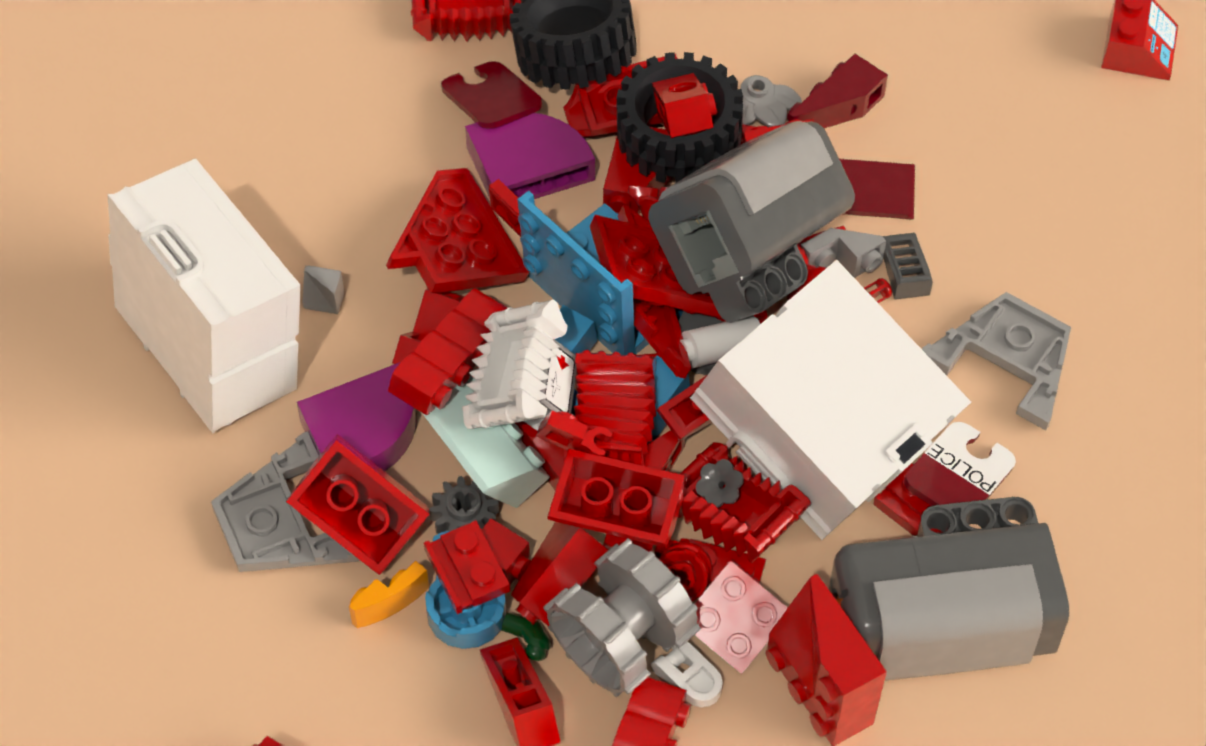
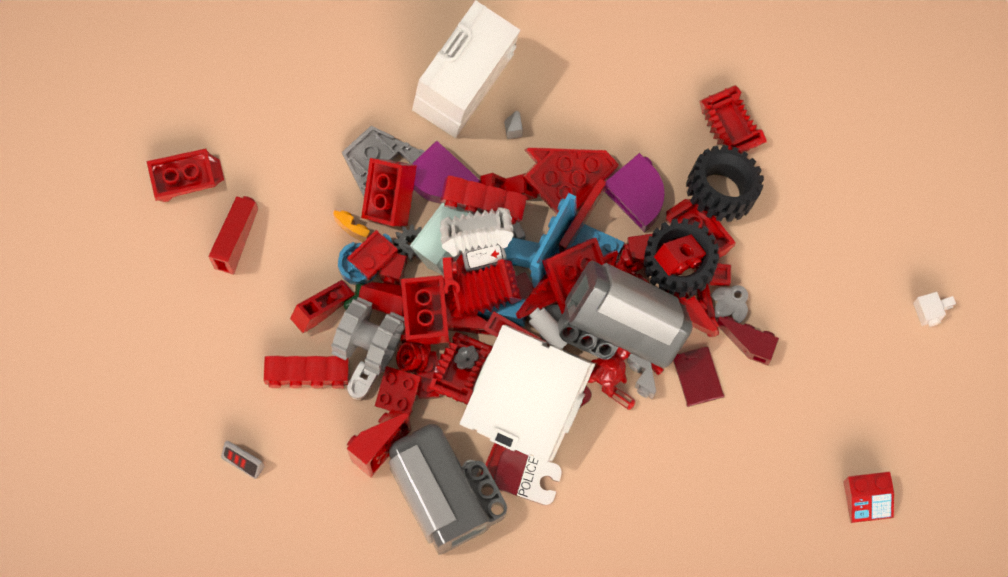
camera: 70 degrees right, 15 degrees up
(494, 101) = (667, 162): dark red piece -> none
(909, 286) = (634, 412): dark grey slope -> none
(1016, 340) = (623, 485): light grey wing -> none

